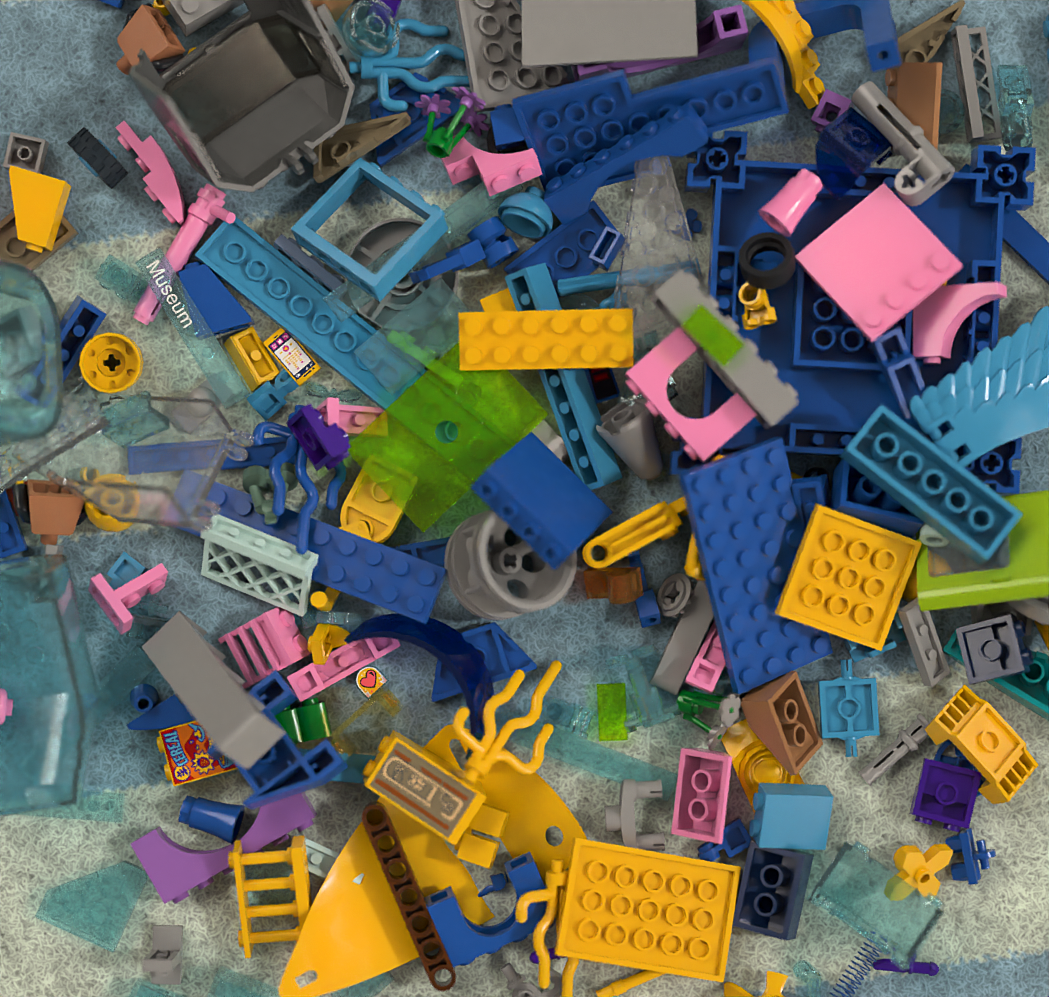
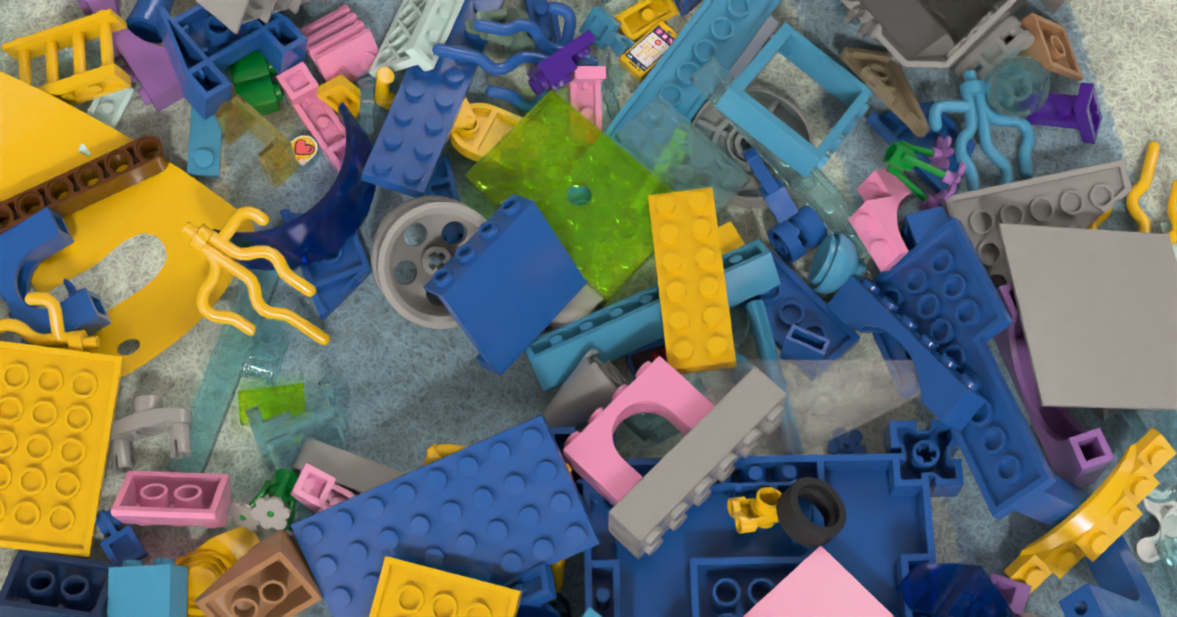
camera: 90 degrees right, 20 degrees down
(423, 786) = (186, 186): slope -> none
(479, 848) = (122, 265): yellow piece -> none
(618, 584) = (417, 388): clear orange plate -> none
(636, 532) = (471, 386): yellow plate -> none
(646, 604) = (401, 427): blue piece -> none
(669, 590) = (404, 456): light grey gear -> none
(712, 335) = (710, 432): clear neon green plate -> none
(791, 202) = (886, 535): bright pink plant -> none

